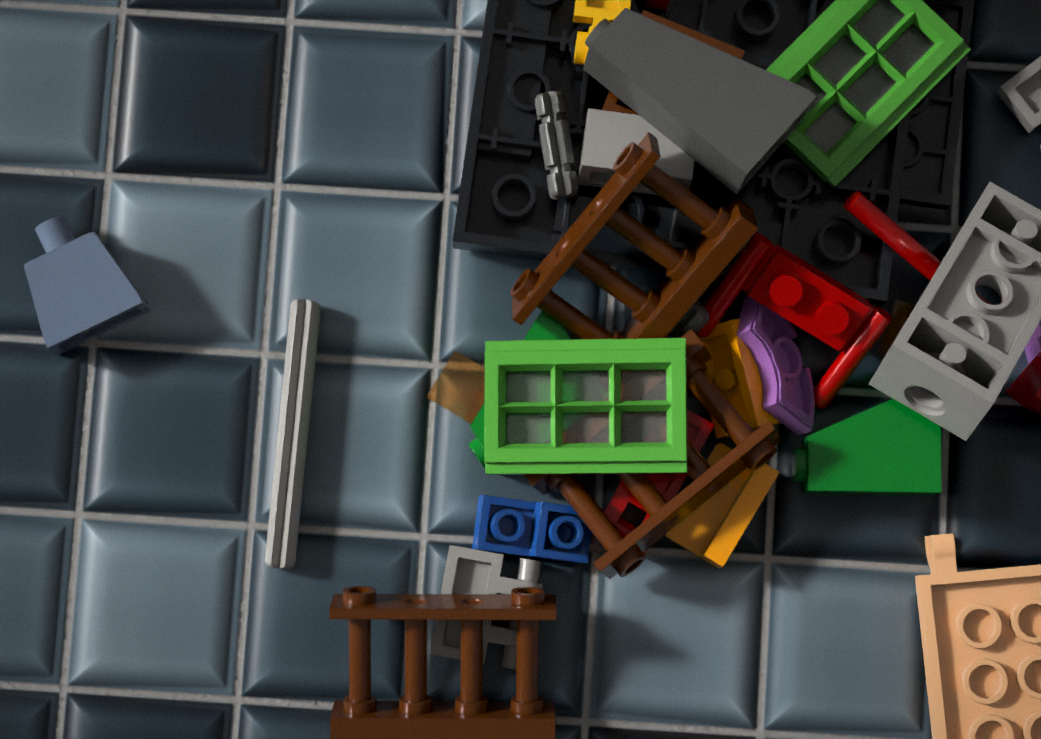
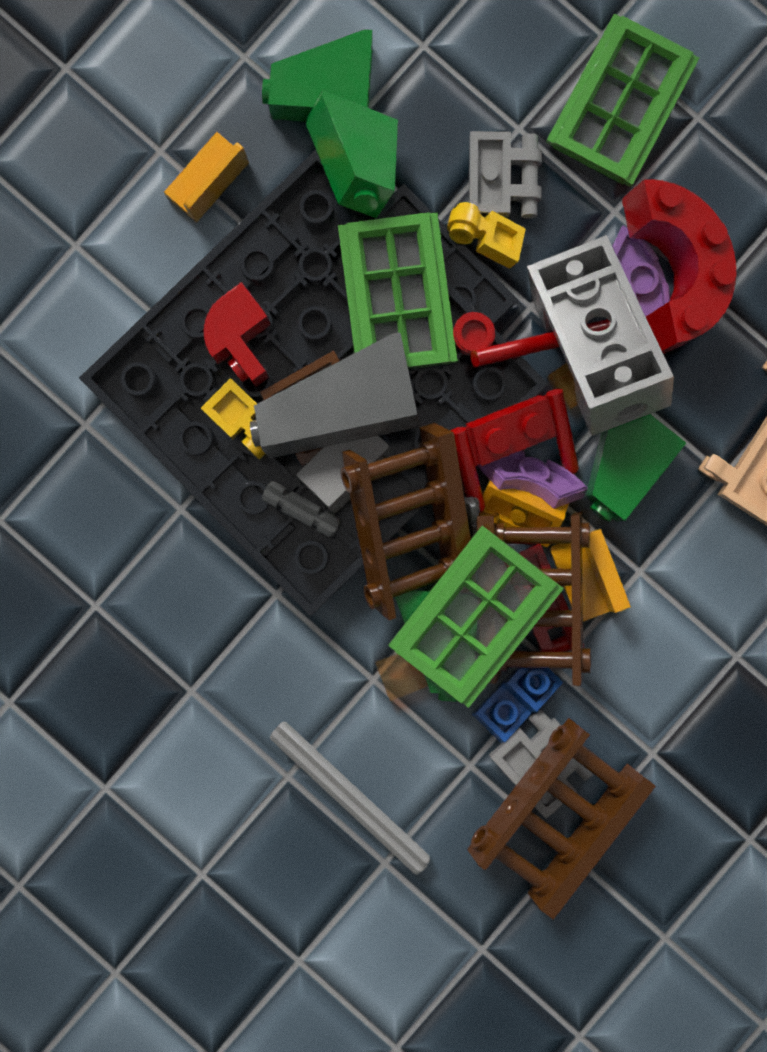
camera: 50 degrees left, 5 degrees up
(79, 287) = (161, 861): sand blue torso -> none
(878, 180) = (473, 332): none -> red tile
(999, 133) = (496, 235): none -> yellow plate

